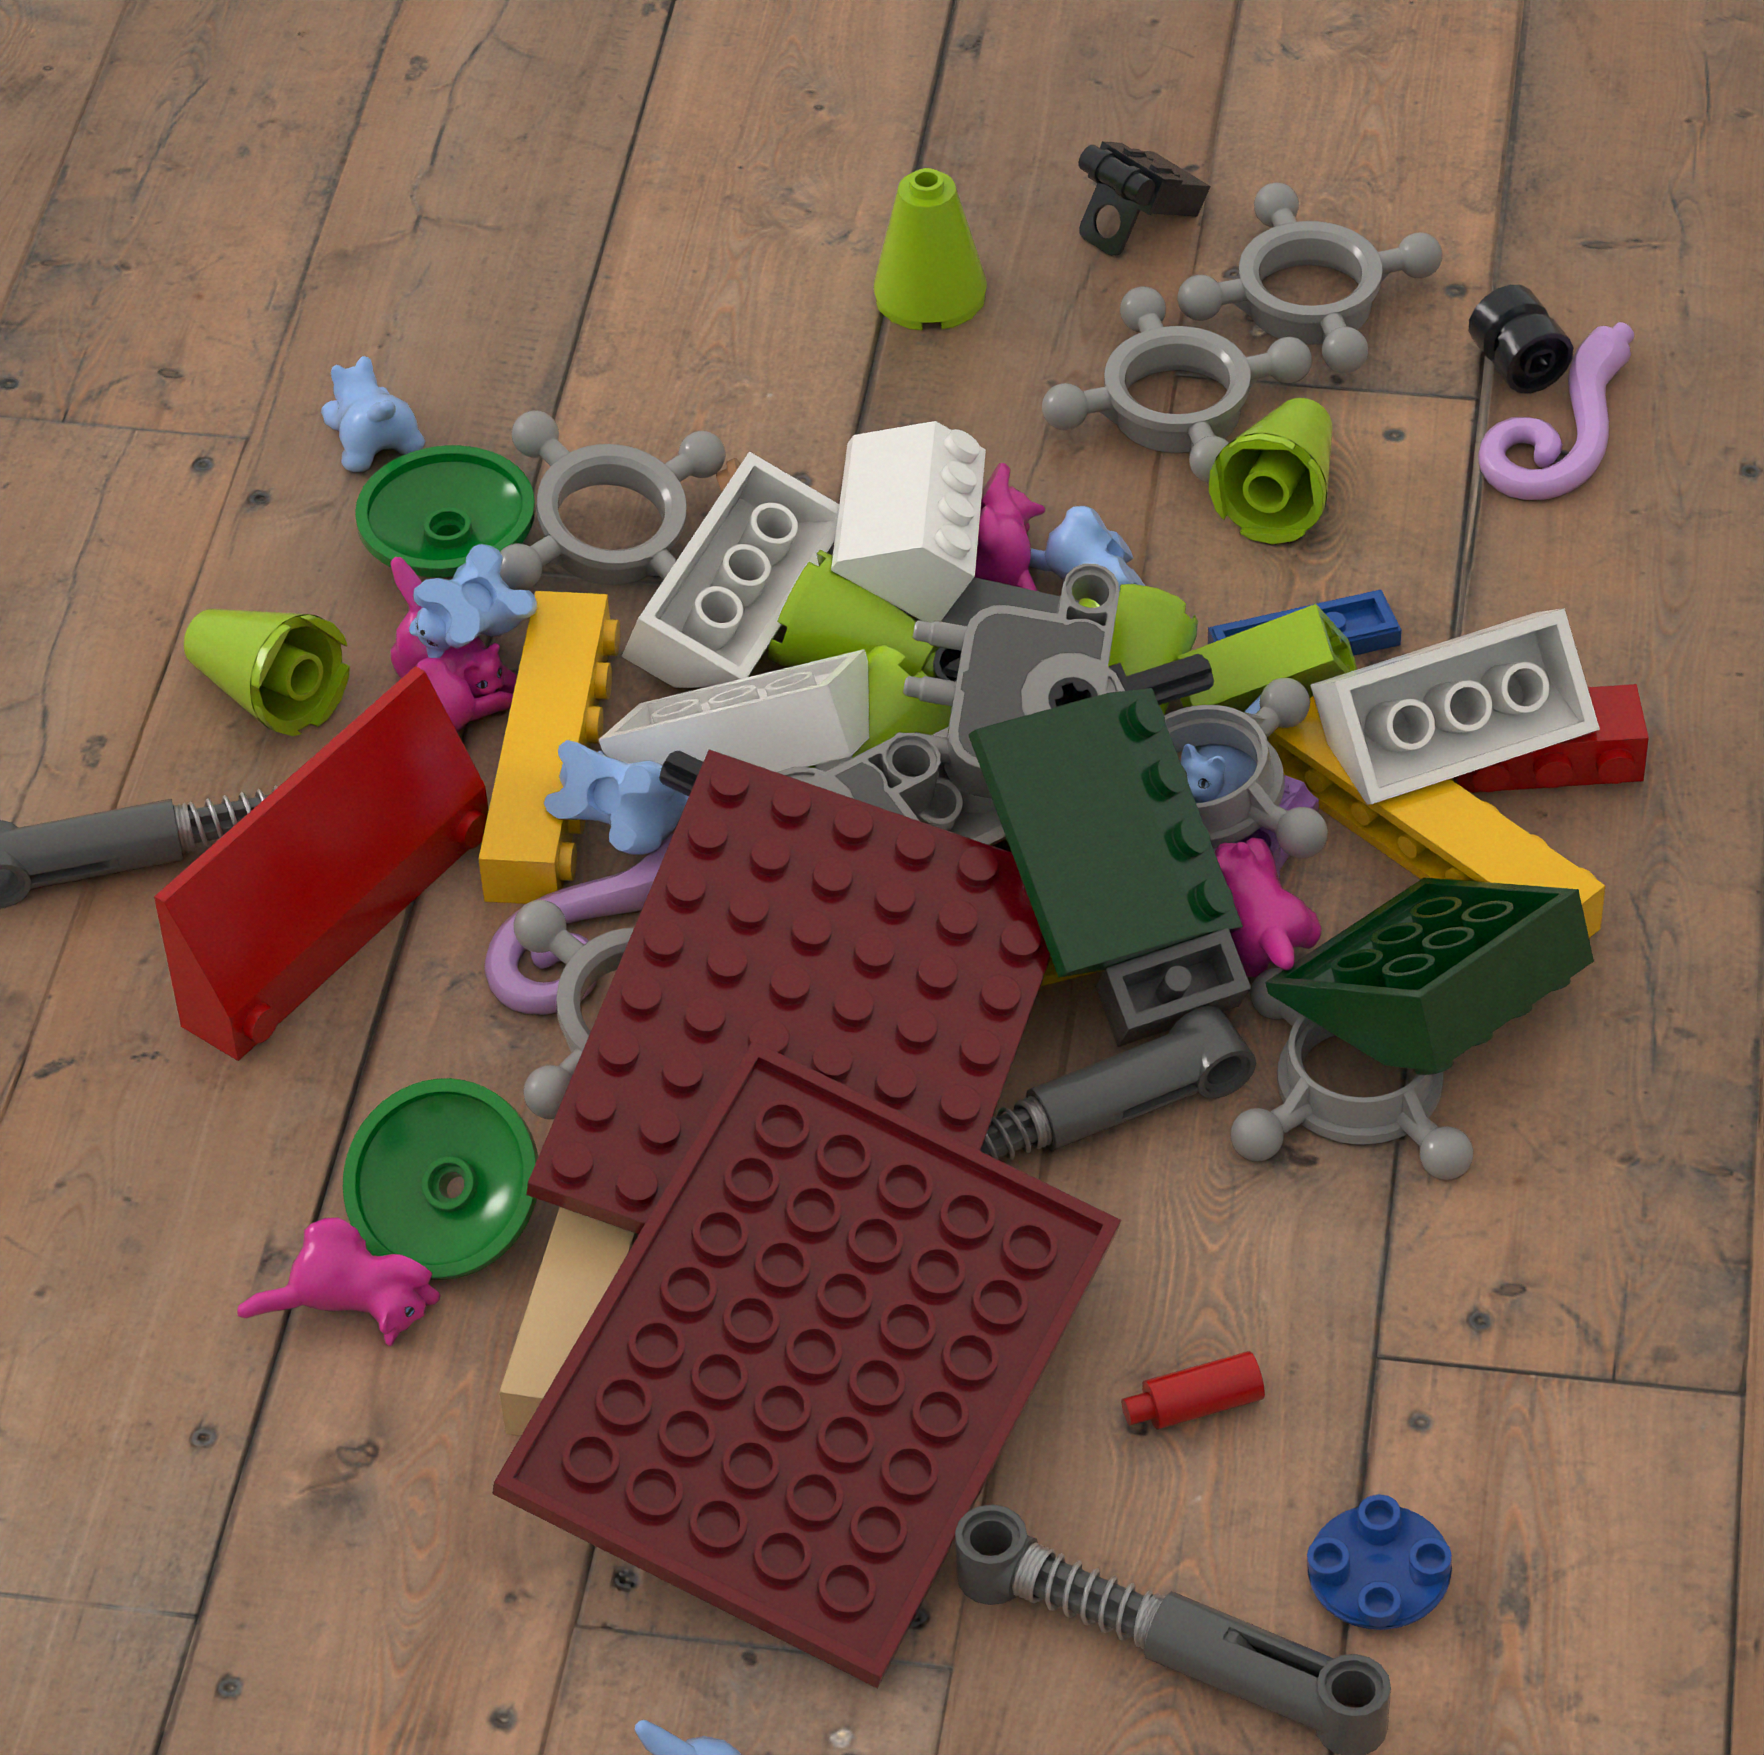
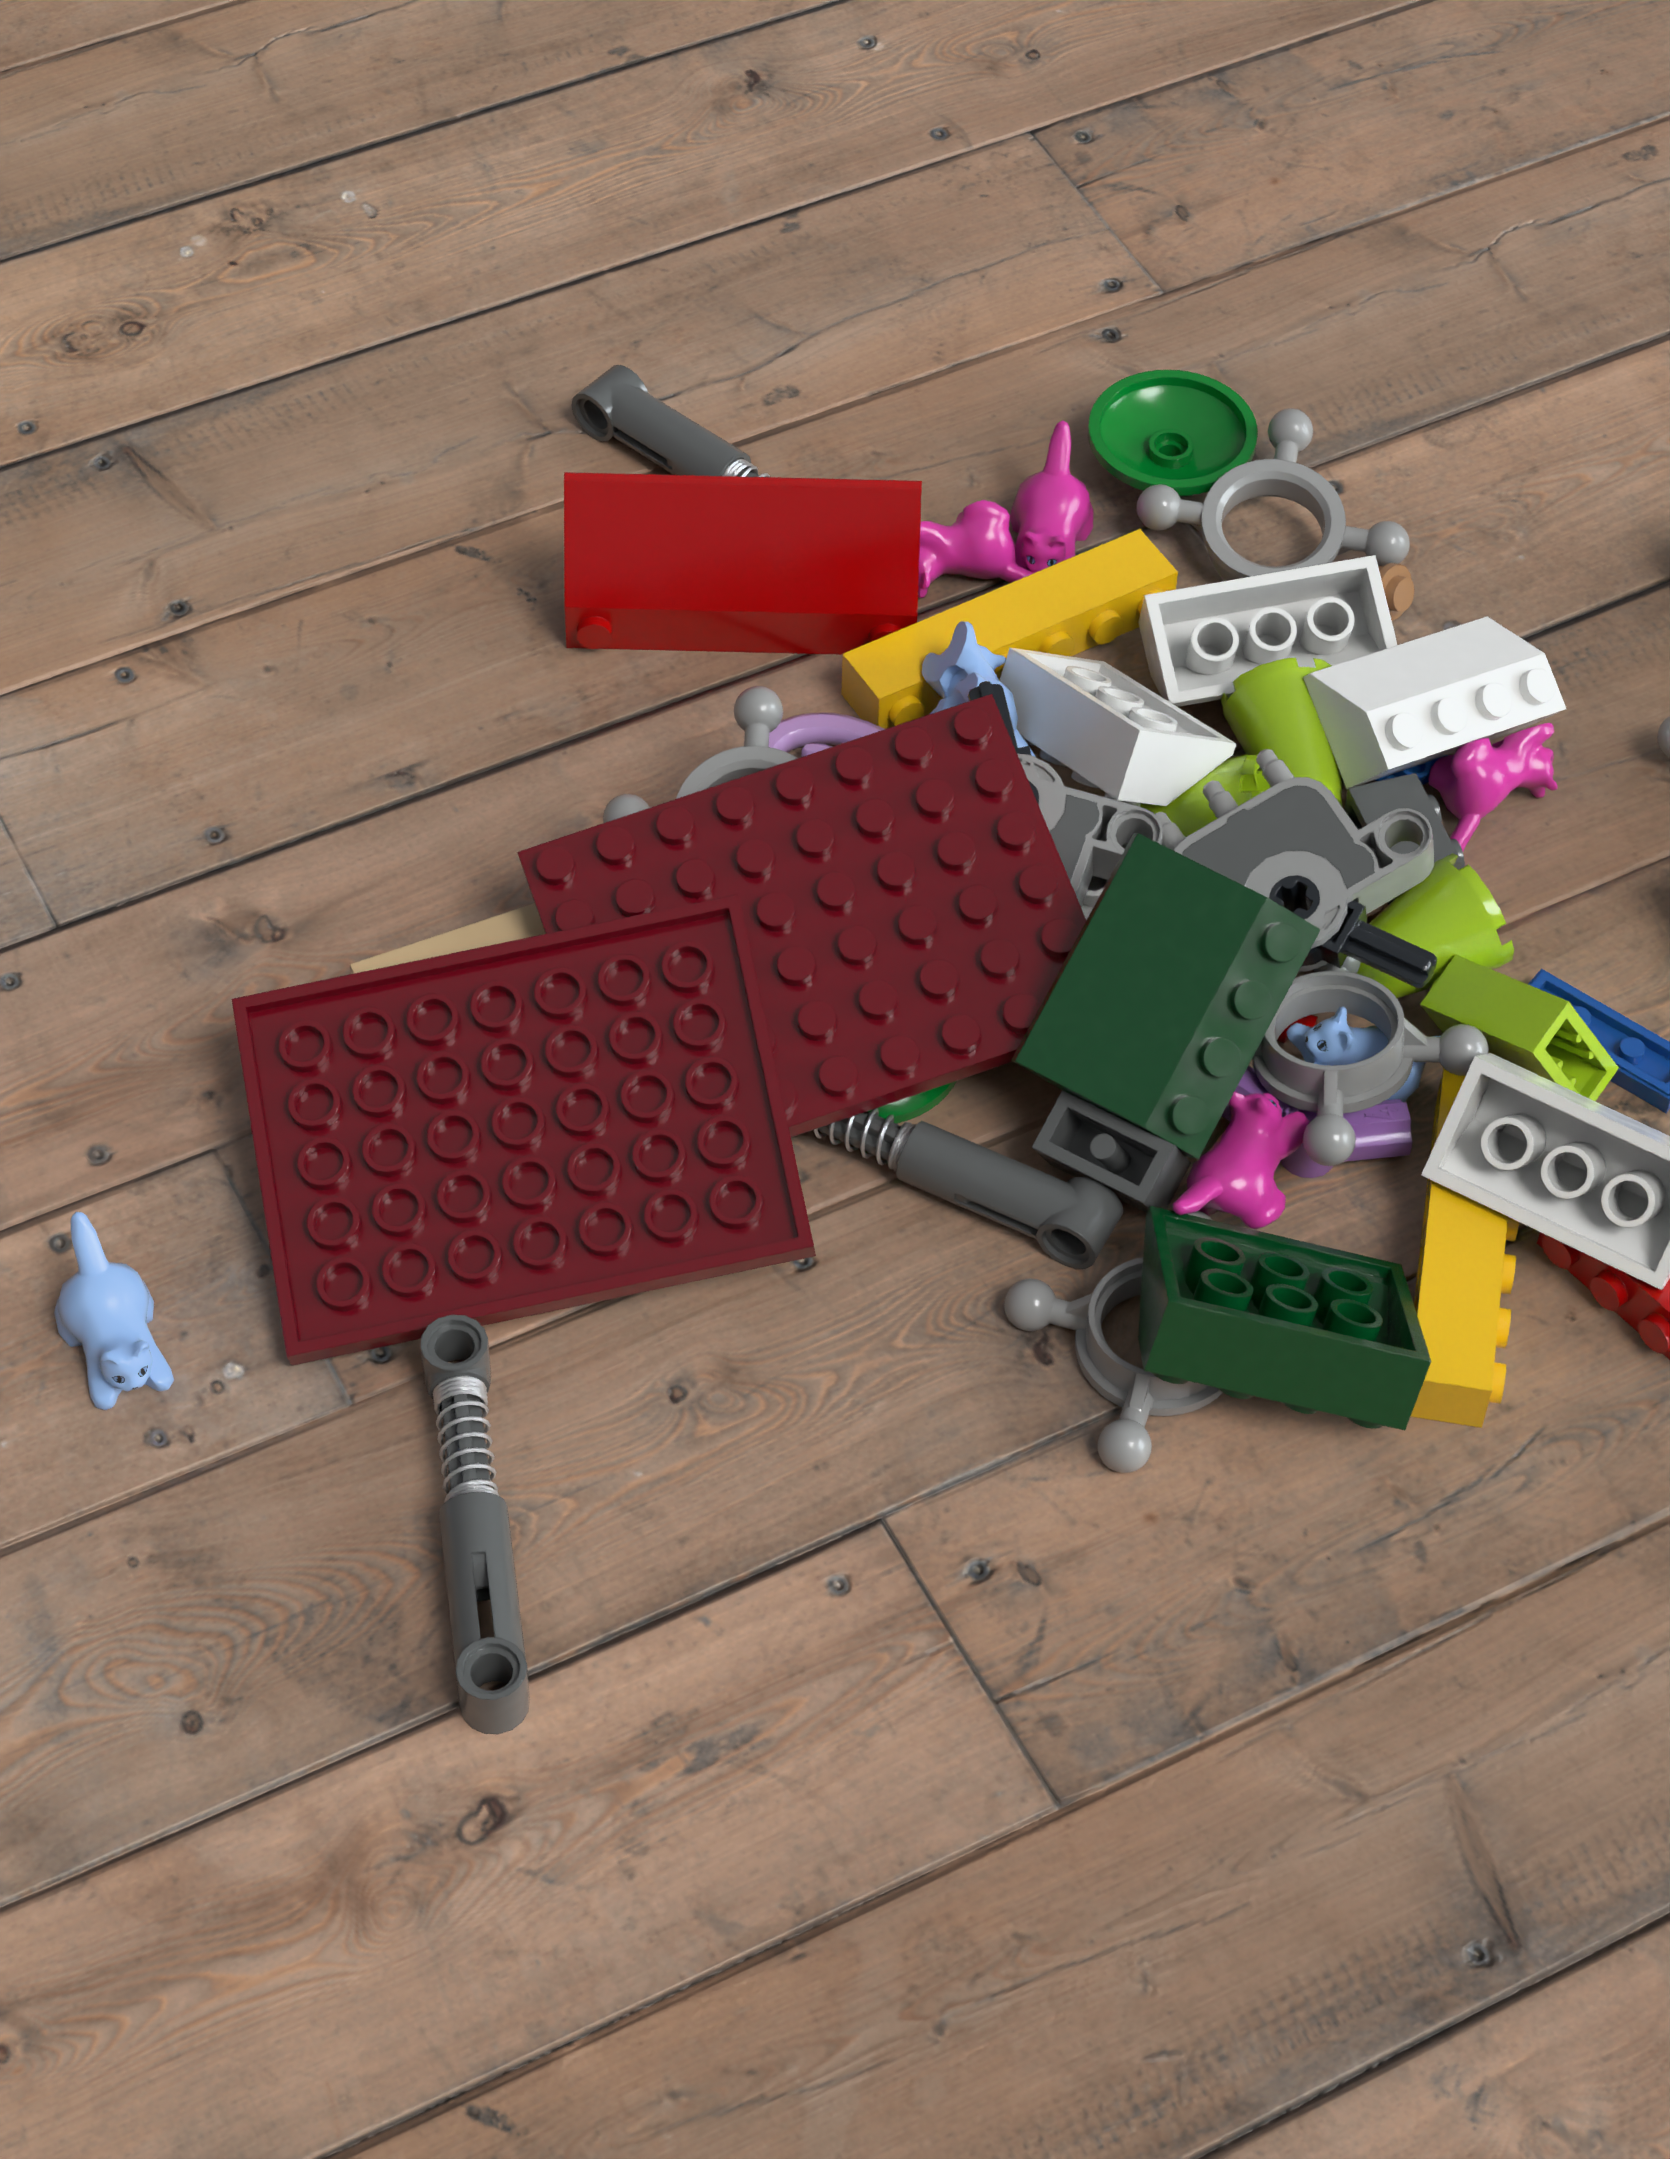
camera: 50 degrees right, 5 degrees up
(272, 664) = (927, 432): lime cone -> none
(342, 1275) = (402, 820): dark pink animal -> none
(368, 417) = (1238, 340): light blue animal -> none
(410, 1154) = (514, 801): green dish -> none
(469, 604) = (1081, 497): light blue animal -> none
(1085, 540) = (1526, 854): light blue animal -> none
(1196, 1392) = (729, 1409): red cylinder -> none
(1379, 1565) = (654, 1631): blue dish -> none

